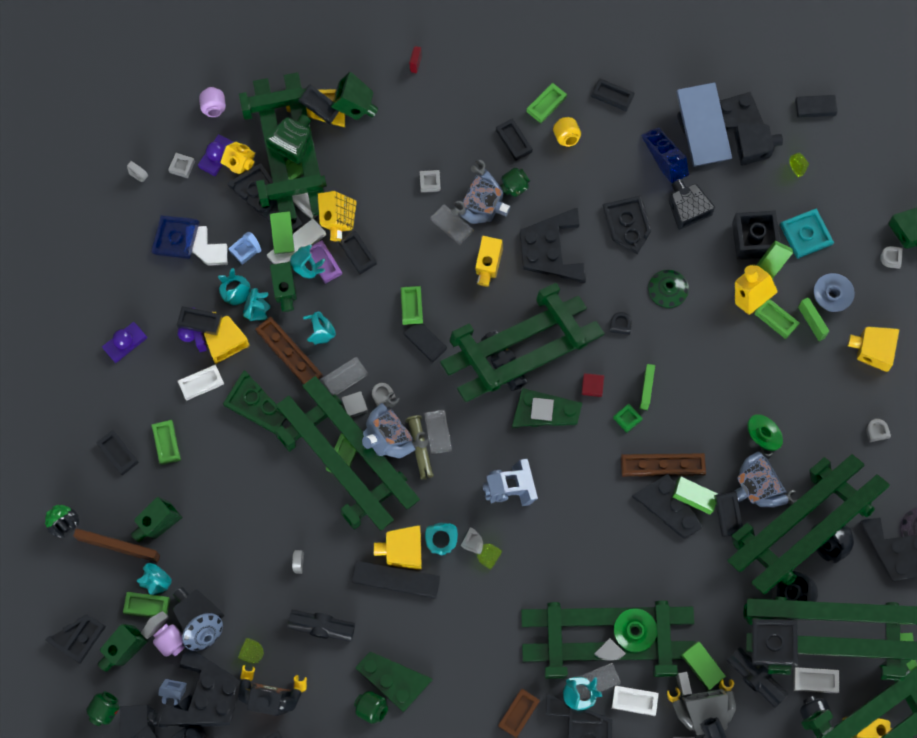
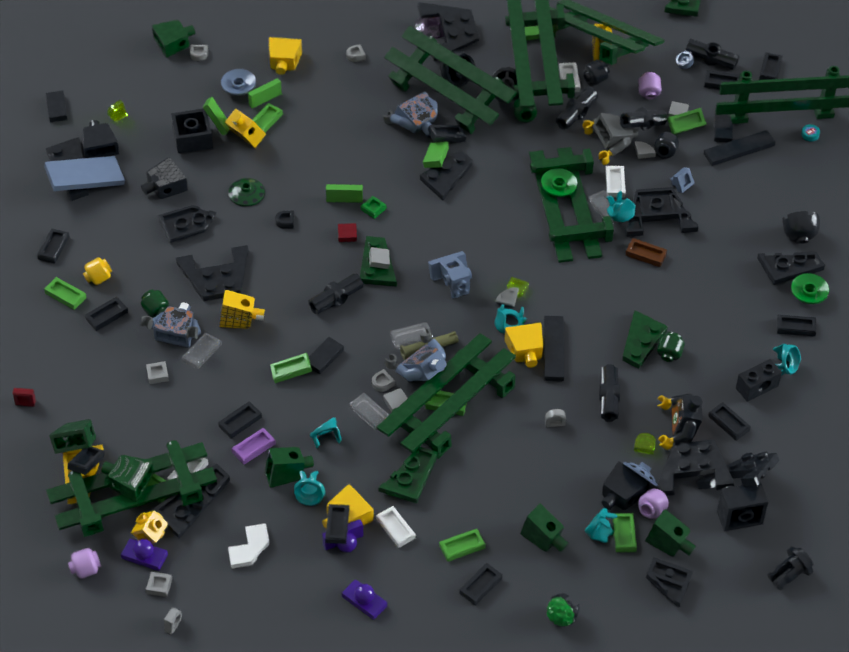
camera: 100 degrees left, 20 degrees down
(102, 708) = (729, 544): dark green head -> none
(116, 545) = (574, 563): reddish brown tile -> none
(154, 624) = (642, 515): light grey tile -> none
(172, 689) = (697, 494): sand blue tile -> none
(175, 237) = (243, 571): clear blue tile -> none
(237, 295) = (293, 502): teal piece -> none
(245, 248) = (246, 511): light blue tile -> none
(282, 233) = (231, 474): bright green tile -> none
(287, 351) = (352, 460): reddish brown tile -> none
(300, 257) = (259, 445): teal piece -> none
(306, 235) = (238, 470): white tile -> none
(336, 213) = (198, 431): yellow torso -> none
(476, 354) = (328, 301): dark green fence -> none
(610, 651) = (580, 197): light grey tile -> none
(663, 464) = (411, 181): reddish brown tile -> none
(666, 154) = (115, 199): clear blue slope -> none
(683, 684) = (596, 147): light grey tile -> none
(703, 665) = (576, 140): bright green tile -> none
(765, 432) = (372, 116): green dish -> none
(774, 642) = (553, 83): black tile -> none
(806, 233) = (181, 101): teal tile -> none

